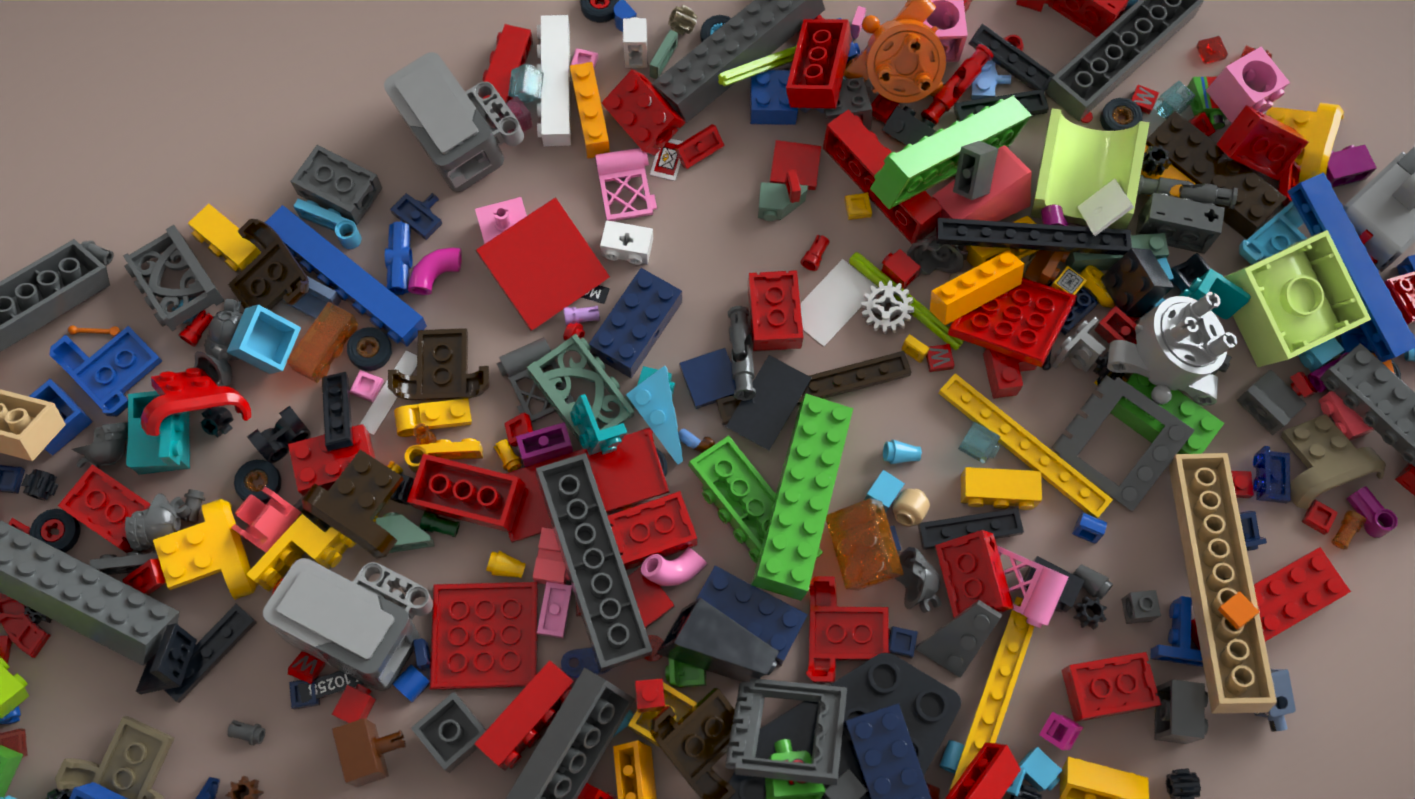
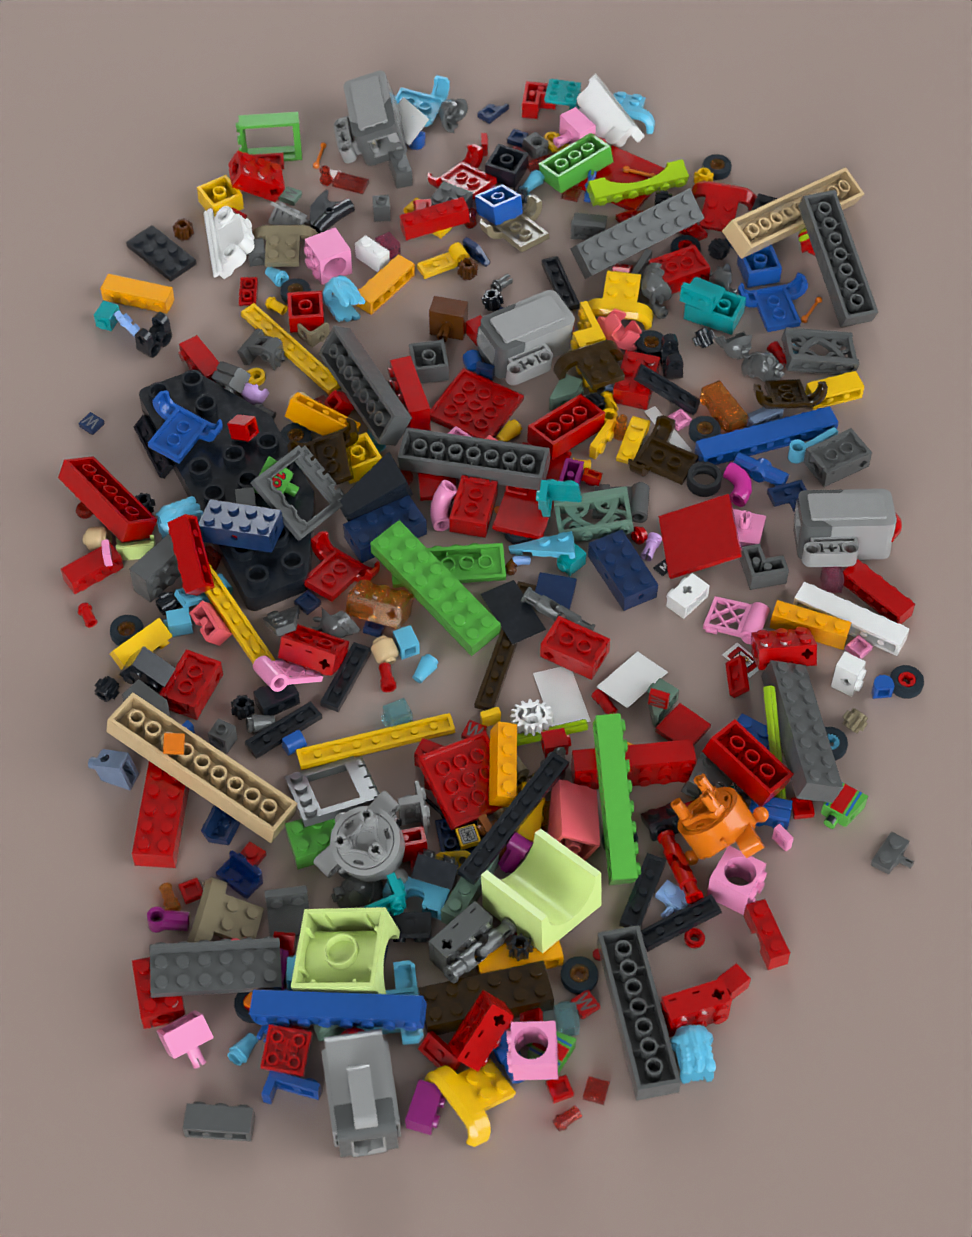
camera: 125 degrees right, 15 degrees down
(73, 678) = (587, 225): none -> dark grey bracket
(103, 255) = (871, 325): dark grey pin -> none
(170, 662) = (564, 258): black bracket -> none
(185, 393) = (718, 318): red piece -> none
(263, 339) = (741, 373): medium azure piece -> none
(280, 724) = (492, 300): none -> black gear
(440, 294) = (701, 489): none -> black tyre
(526, 83) = (853, 591): clear light blue brick -> none
(548, 182) = (762, 571): none -> dark grey brick
(650, 695) = (372, 442): red brick -> none
(663, 54) = (831, 694): sand green tile -> none
(770, 240) = (631, 679): none -> white sticker
(944, 482) = (387, 680): none -> red pin
(975, 170) = (585, 794): dark grey brick -> none
(1001, 488) = (358, 708): yellow brick -> none
(1019, 723) = (213, 627): none -> coral brick
(1061, 731) = (188, 639): dark pink brick -> none
(1082, 550) = (272, 735): none -> black plate
(1105, 207) = (501, 868): white piece -> none
(1144, 741) = (147, 668): none -> black brick

